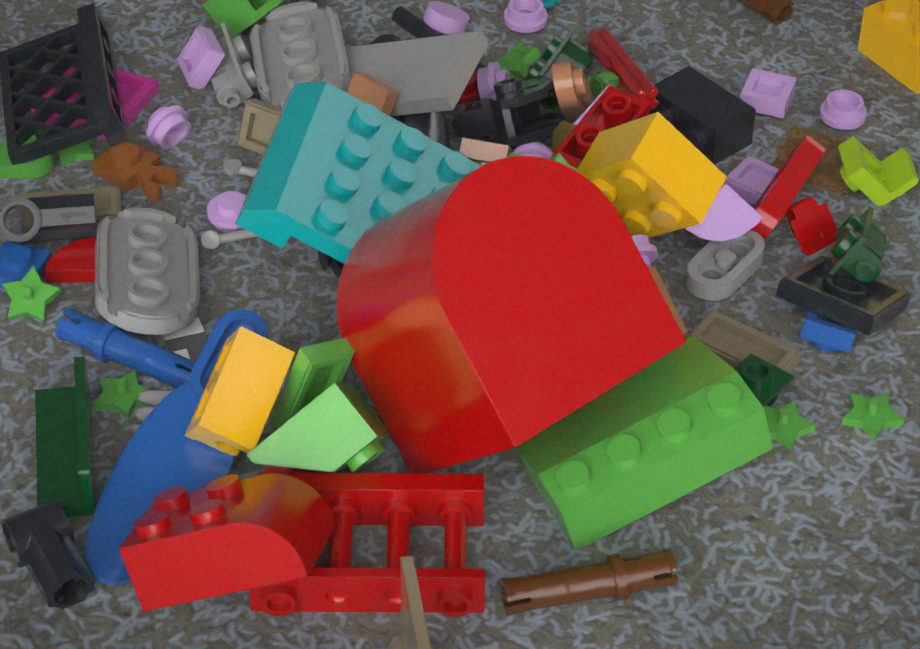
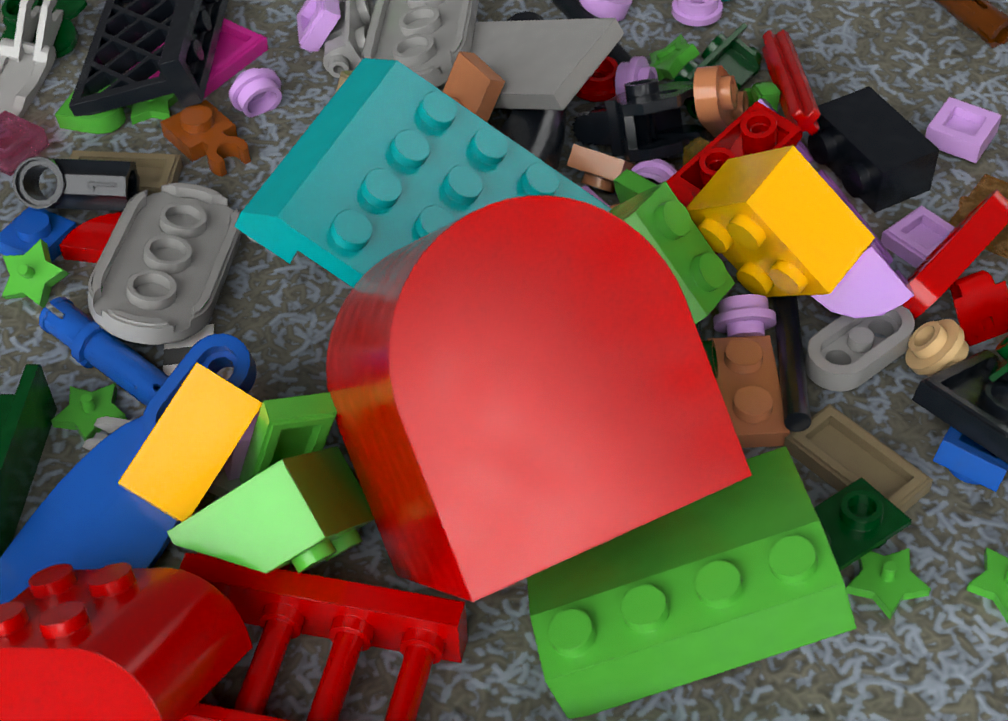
camera: 15 degrees right, 5 degrees up
(677, 284) = (791, 364): none -> black bar
(783, 257) = (936, 347): none -> tan plate

